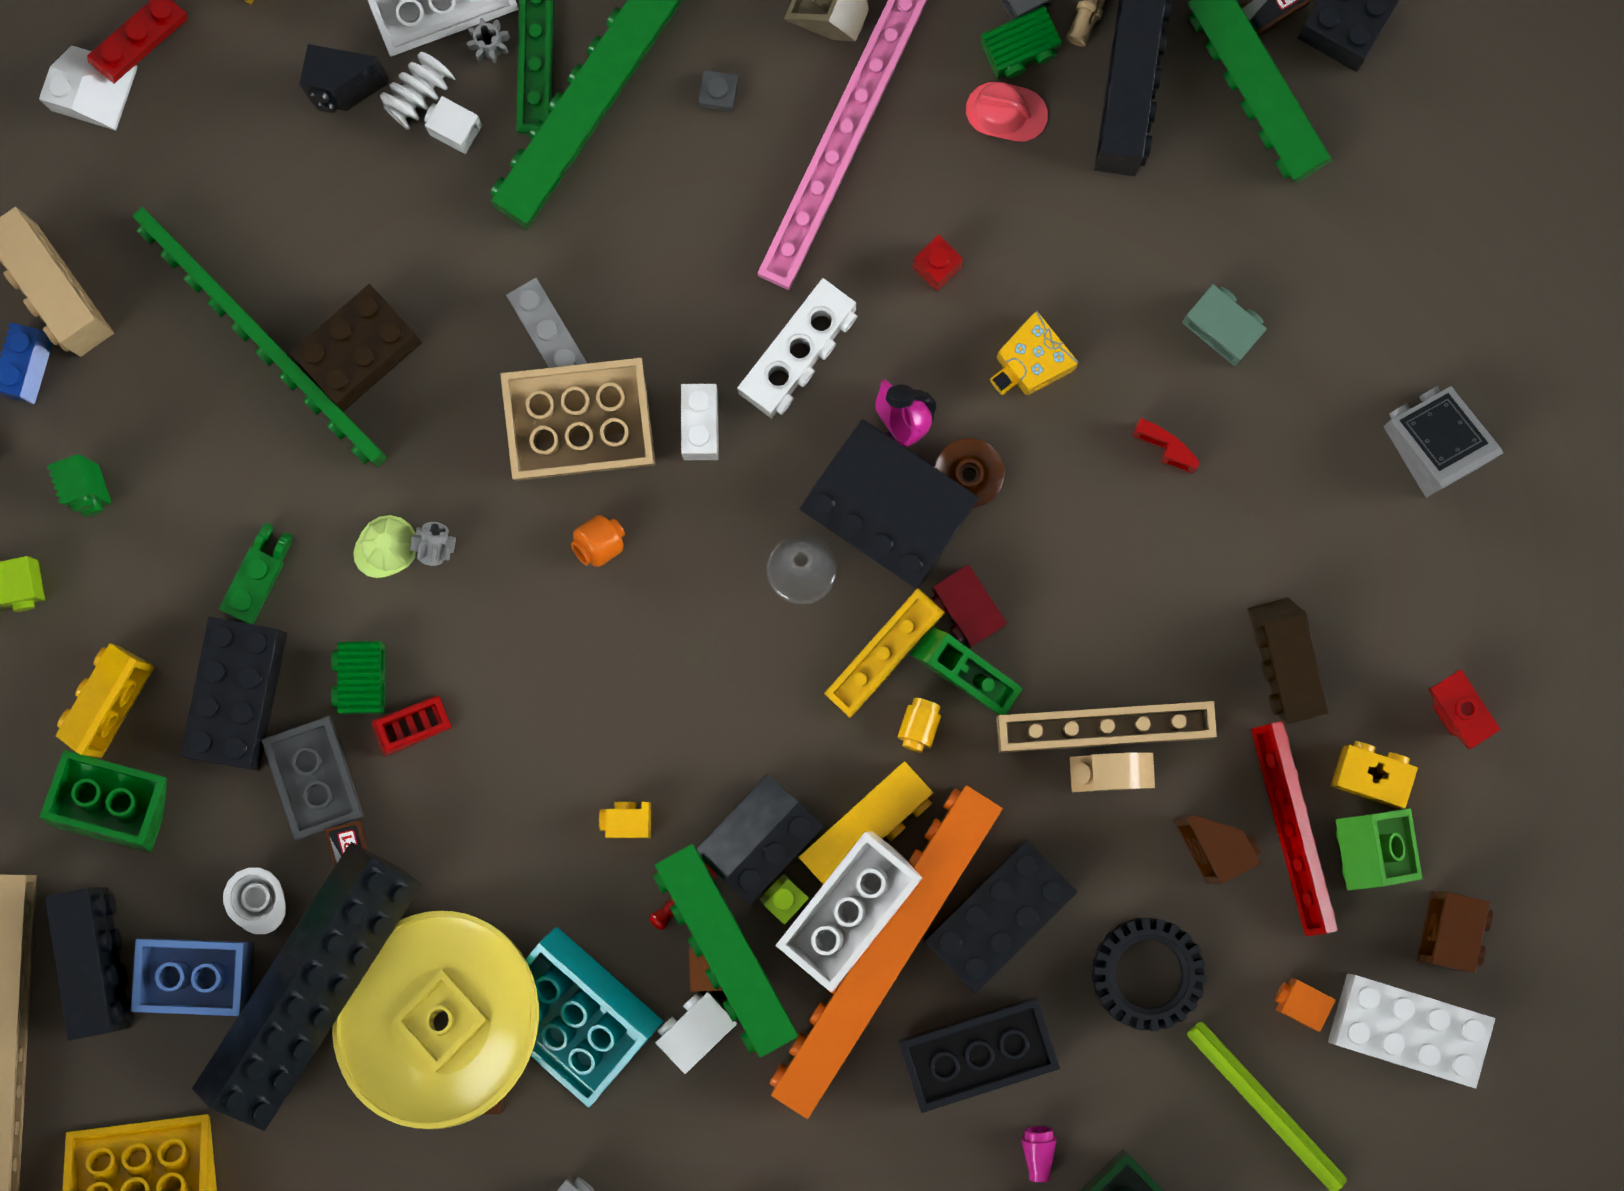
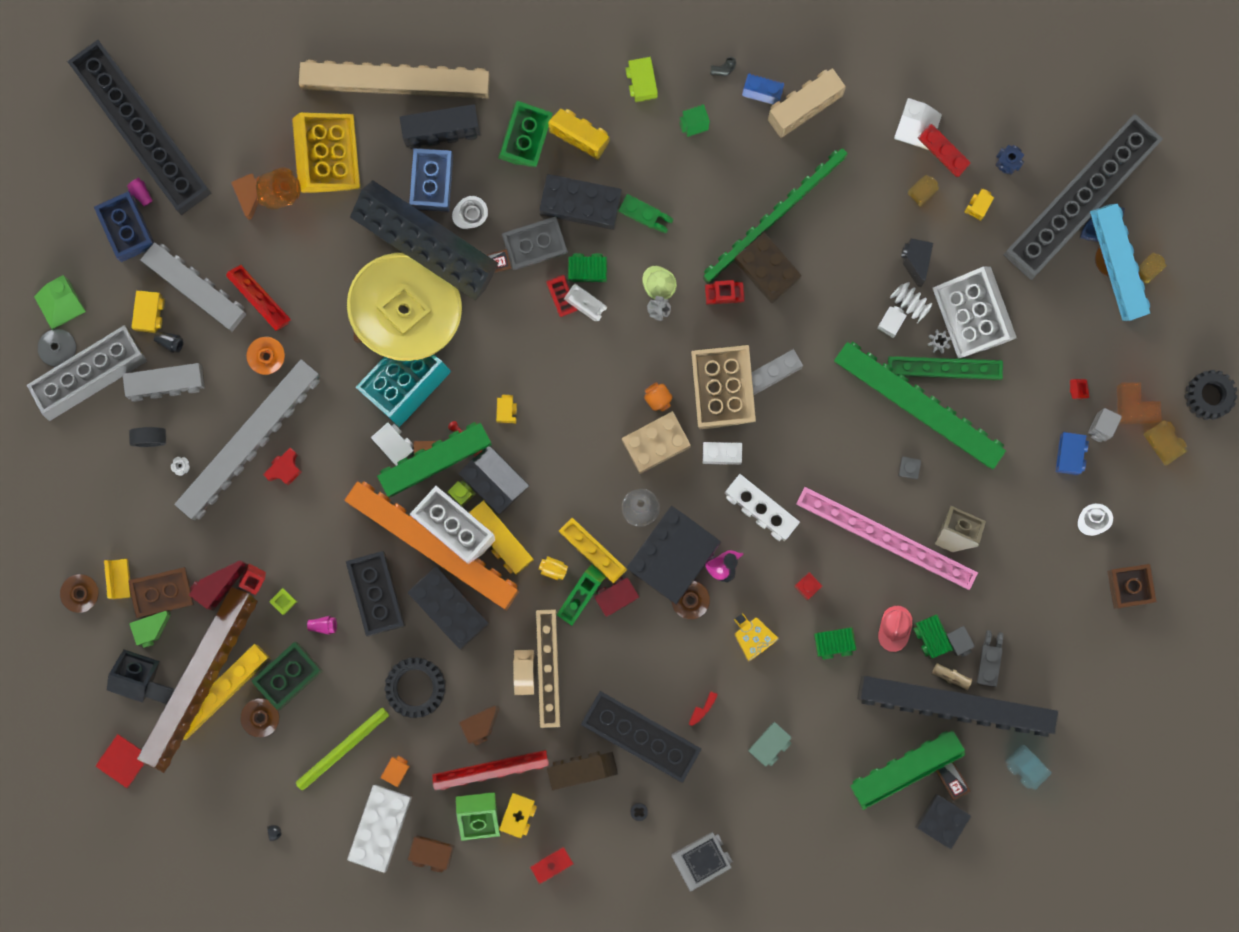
camera: 90 degrees right, 0 degrees up
(210, 73) = (923, 190): none -> clear yellow brick
(402, 426) = (724, 292): none -> red brick
(424, 679) = (585, 302): none -> white hinge
(683, 542) = (656, 442): none -> tan brick
(1037, 214) = (835, 642): none -> green brick
(1222, 554) = (641, 736): none -> black brick
(1366, 557) = (639, 818): none -> black bush

